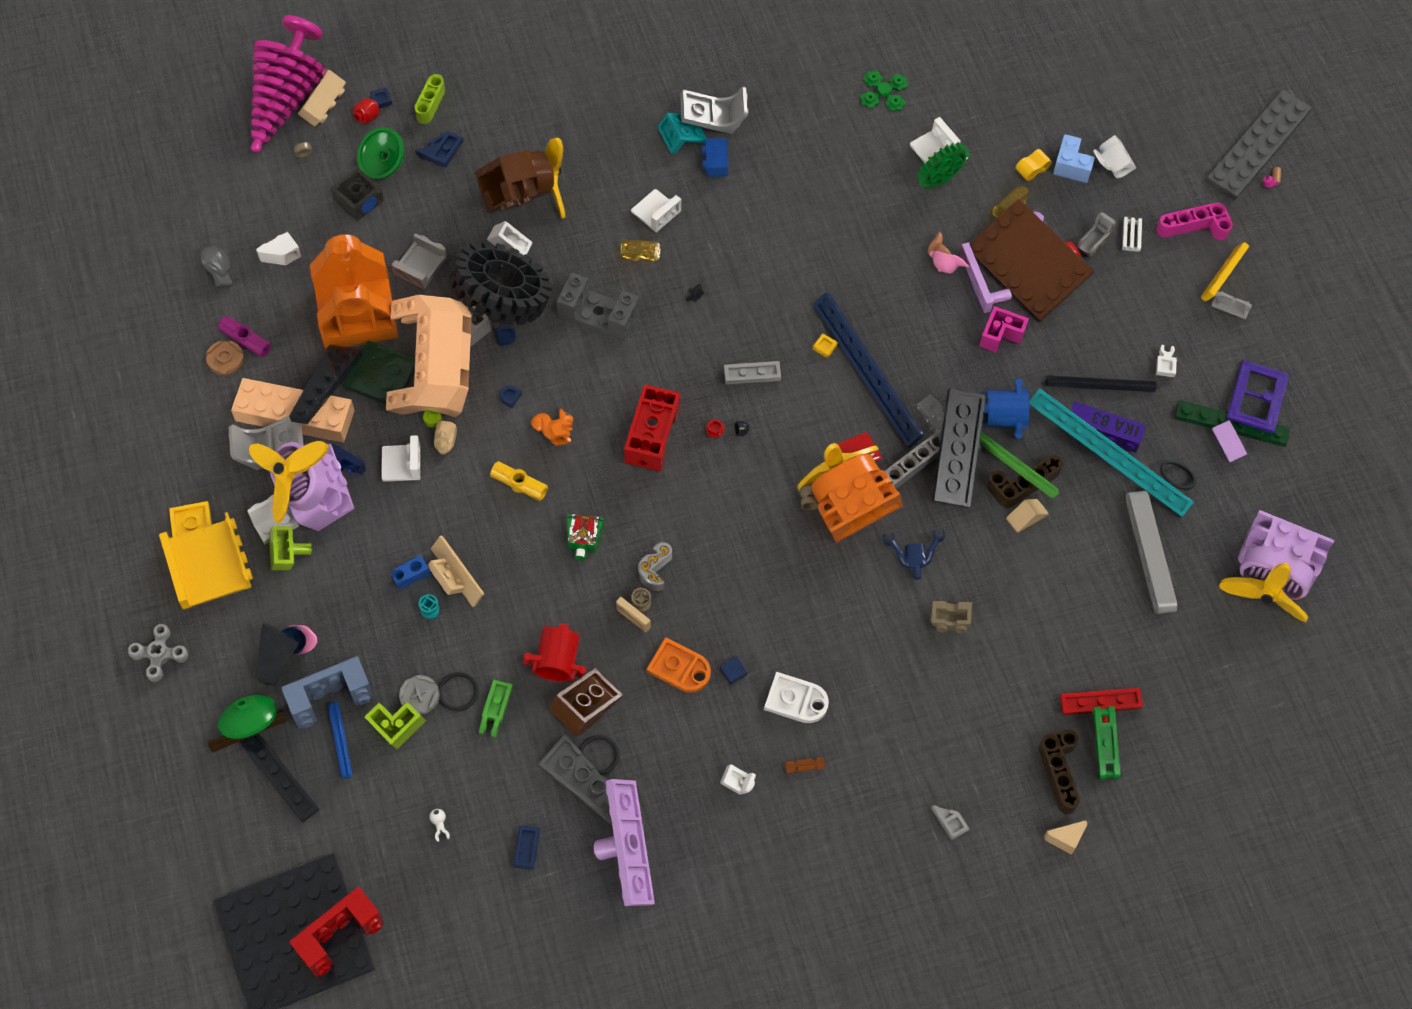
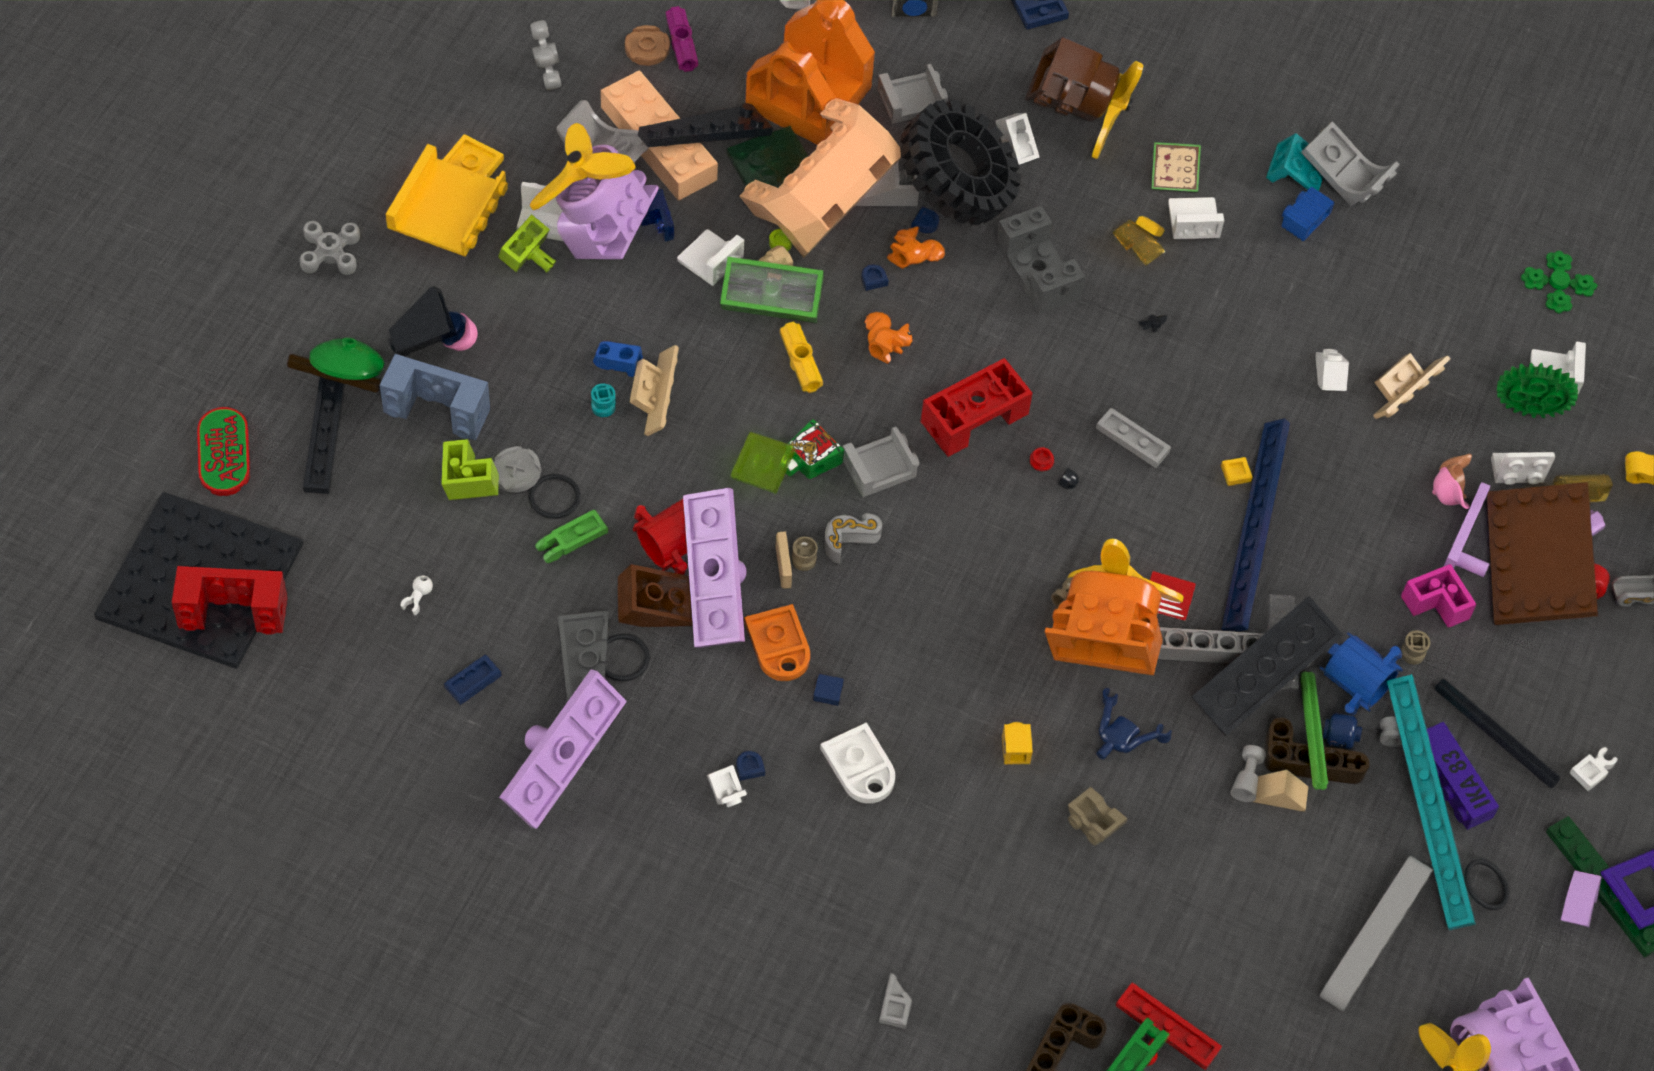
camera: 40 degrees right, 5 degrees down
(172, 415) = (545, 55): none -> light grey gear
(224, 841) = (223, 451): none -> tile
(340, 740) = (407, 450): blue axle -> none
(463, 453) = (772, 289): none -> clear brick
(517, 361) = (910, 251): none -> orange animal
(563, 565) = (763, 462): none -> clear neon green tile
(617, 186) = (1176, 167): none -> piece
(620, 669) = (714, 568): none -> lavender plate
(628, 507) = (880, 463): none -> light grey panel
(638, 235) = (1150, 226): none -> yellow tile
(735, 755) = (749, 765): none -> dark blue tile
(804, 765) = (806, 830): dark orange axle -> none
(820, 242) = (1331, 370): none -> white slope
(864, 217) = (1403, 380): none -> tan bracket
(868, 610) = (1017, 743): none -> yellow brick
(969, 217) = (1521, 467): none -> white bracket
(1006, 524) = (1247, 781): none -> light grey piece
(1016, 369) = (1415, 647): none -> dark tan wheel
(1027, 451) = (1342, 731): none -> dark blue head
(1050, 429) = (1390, 732): none -> light grey wheel

